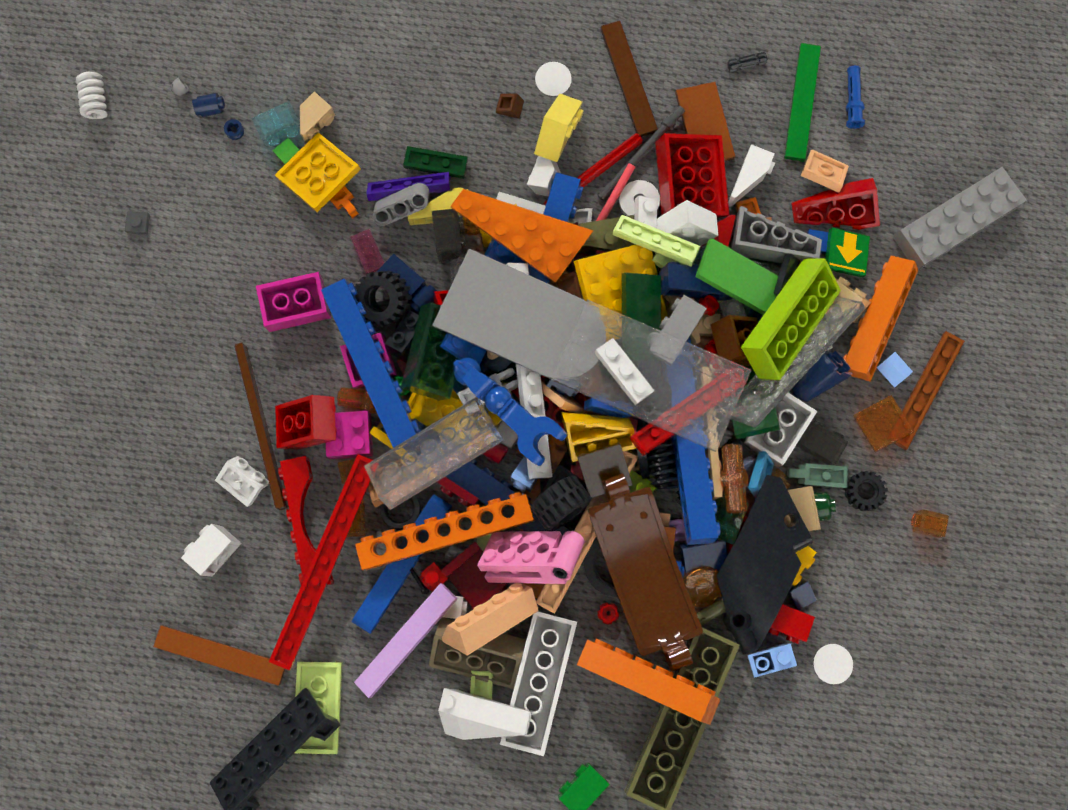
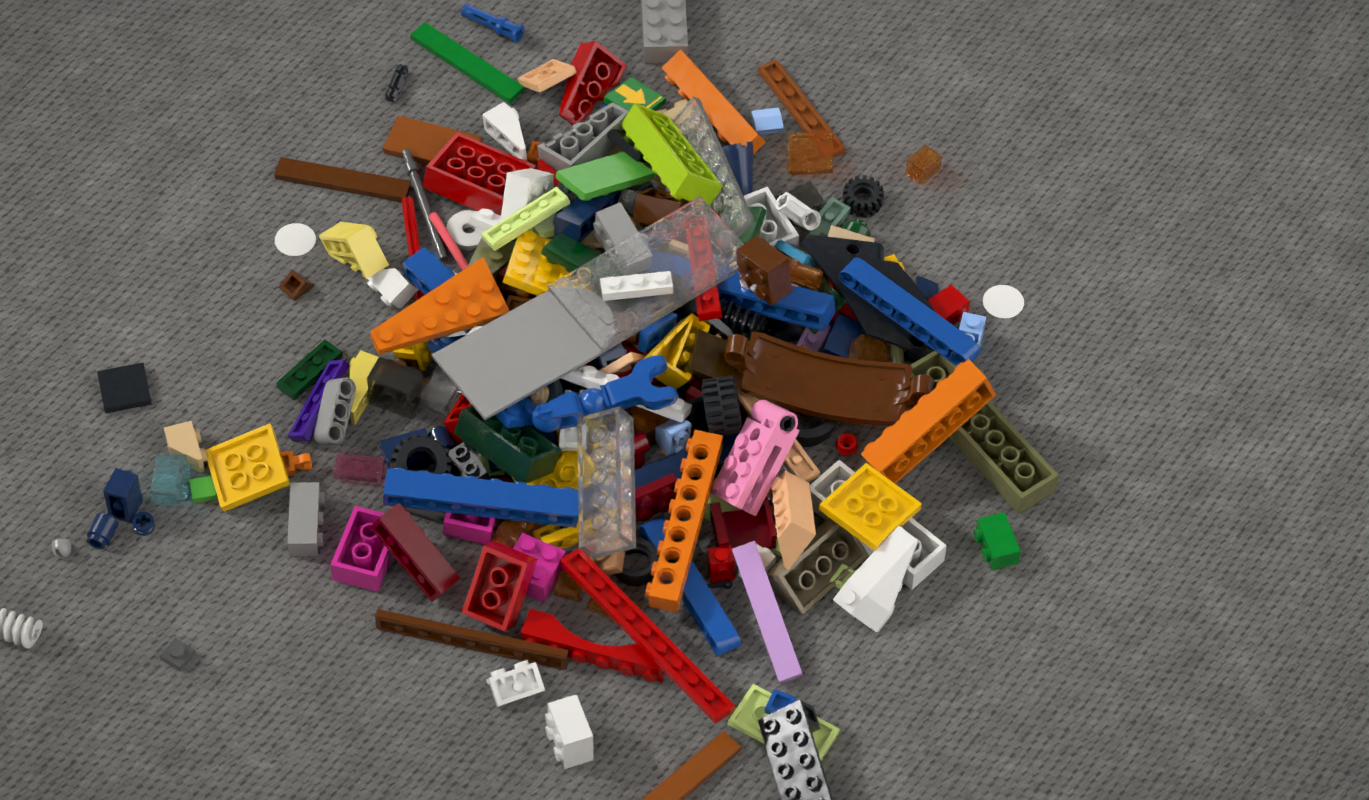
camera: 60 degrees left, 25 degrees down
(239, 100) = (123, 495): none -> dark blue brick
(298, 241) = (305, 519): none -> light grey brick
(301, 341) = (415, 552): none -> dark red brick
(329, 697) = (778, 700): none -> blue tile
(344, 42) = (124, 387): none -> black tile
(539, 676) = (870, 506): none -> yellow plate
(702, 467) = (764, 270): none -> reddish brown brick
(751, 605) = (909, 312): none -> blue beam
(805, 450) = (798, 211): none -> white piece

